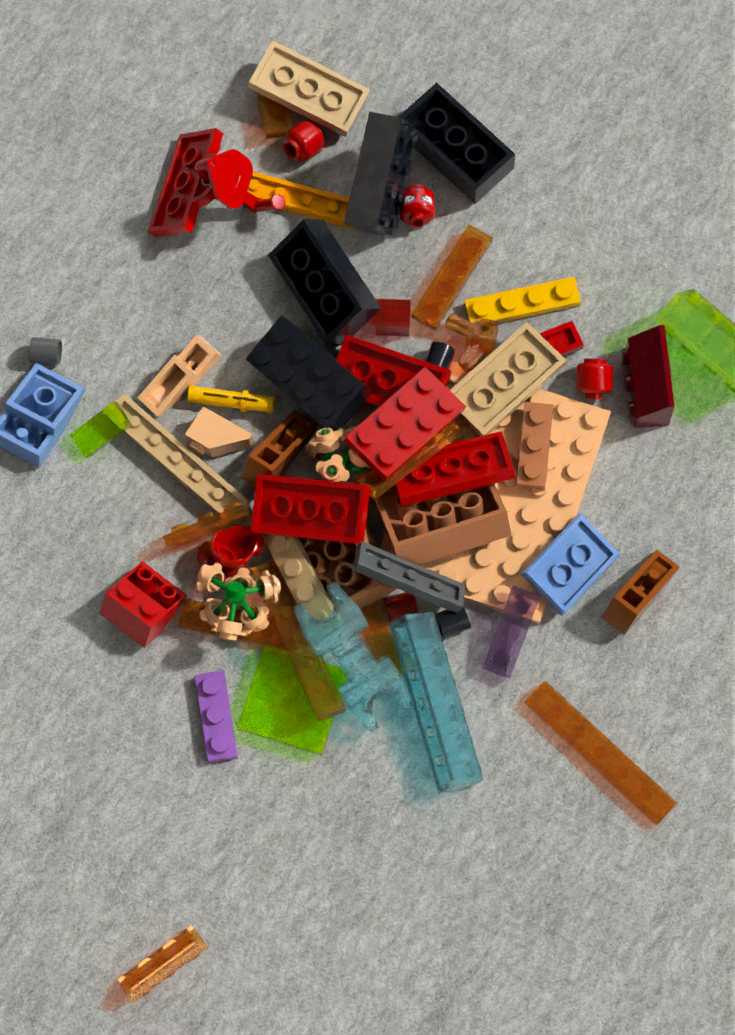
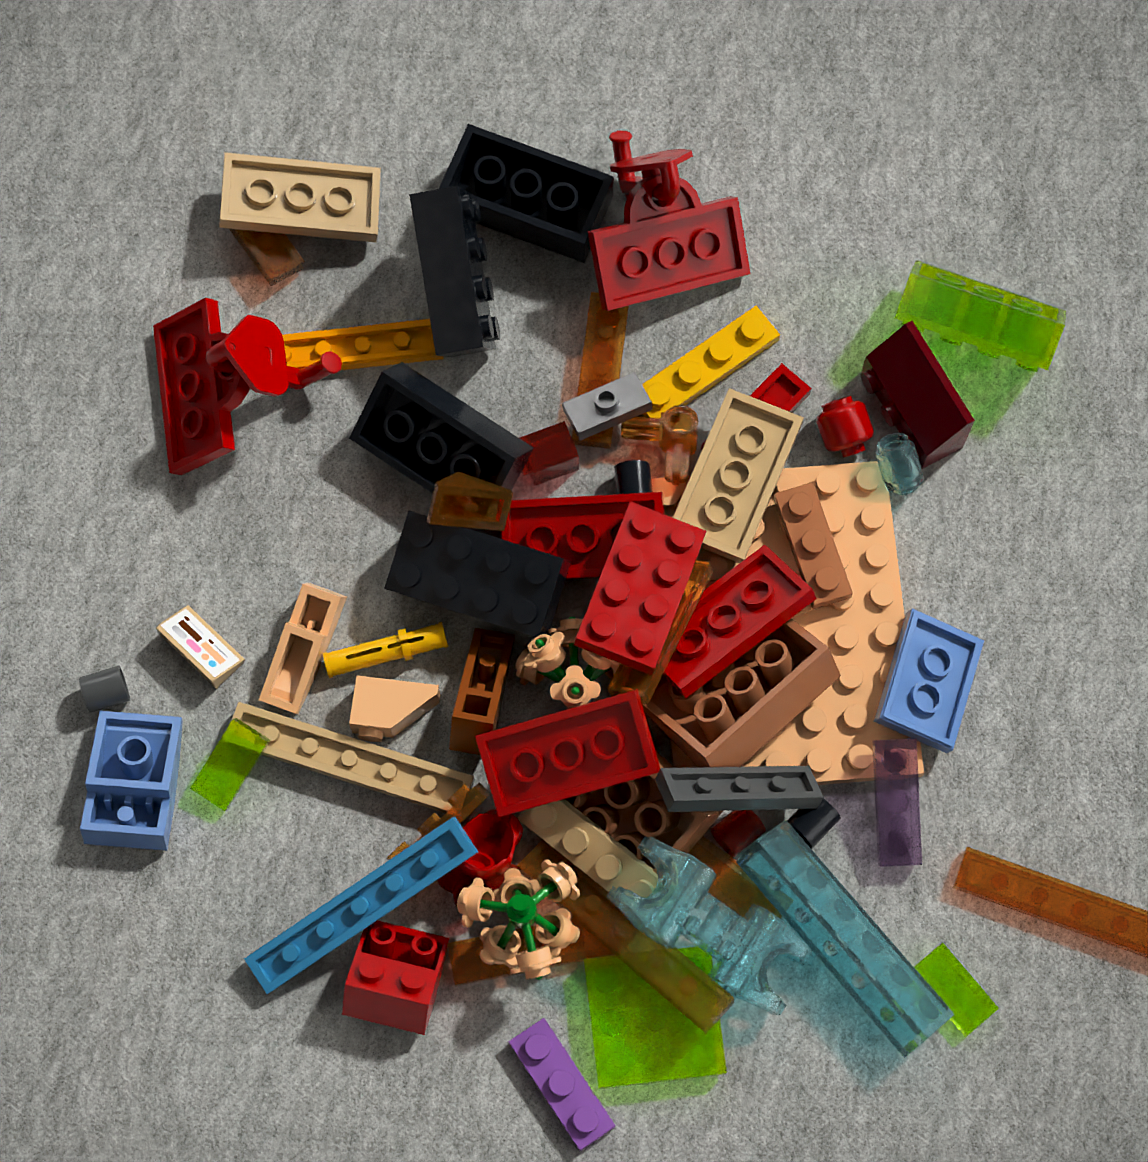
camera: 30 degrees left, 0 degrees up
(117, 349) = (200, 646): none -> slope
(140, 549) = (361, 905): none -> dark azure plate
(303, 141) = (324, 270): red head -> none
(320, 325) = (469, 503): none -> clear orange slope
(417, 206) = (514, 295): red head -> none
(443, 301) = (607, 406): none -> flat silver plate
(494, 767) = (956, 989): none -> clear neon green tile
(534, 212) = (667, 233): none -> red plate
(617, 416) = (899, 464): none -> clear light blue brick
(639, 592) = (1033, 680): dark orange slope -> none

